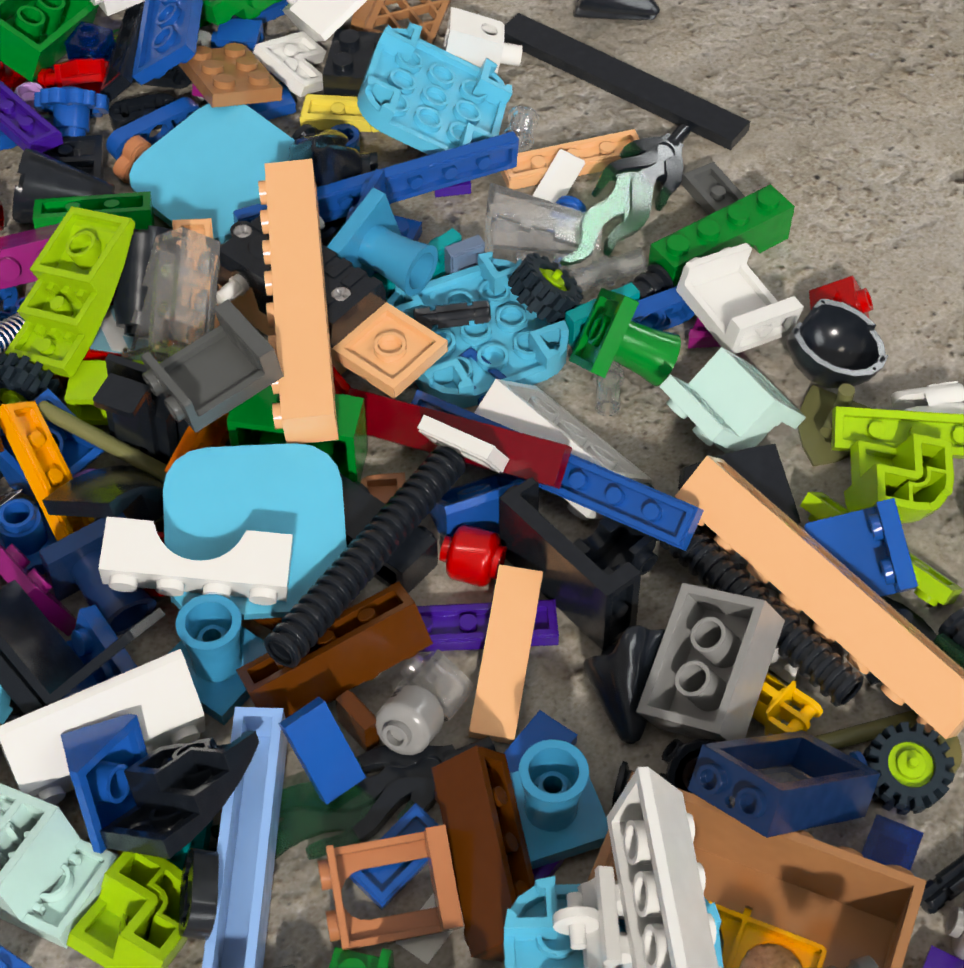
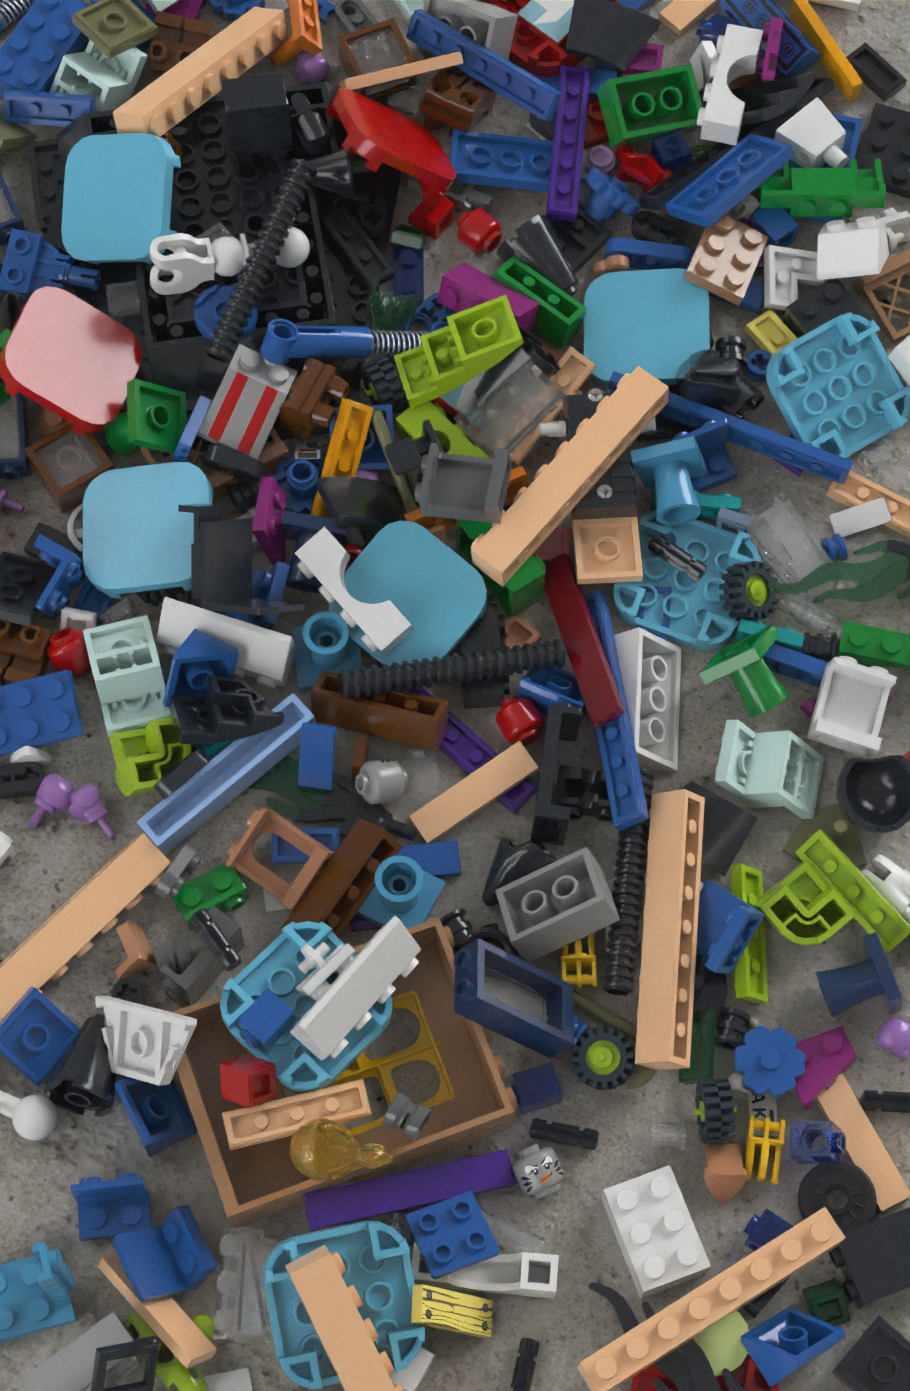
camera: 45 degrees right, 15 degrees up
(463, 444) = (571, 652): white tile -> none

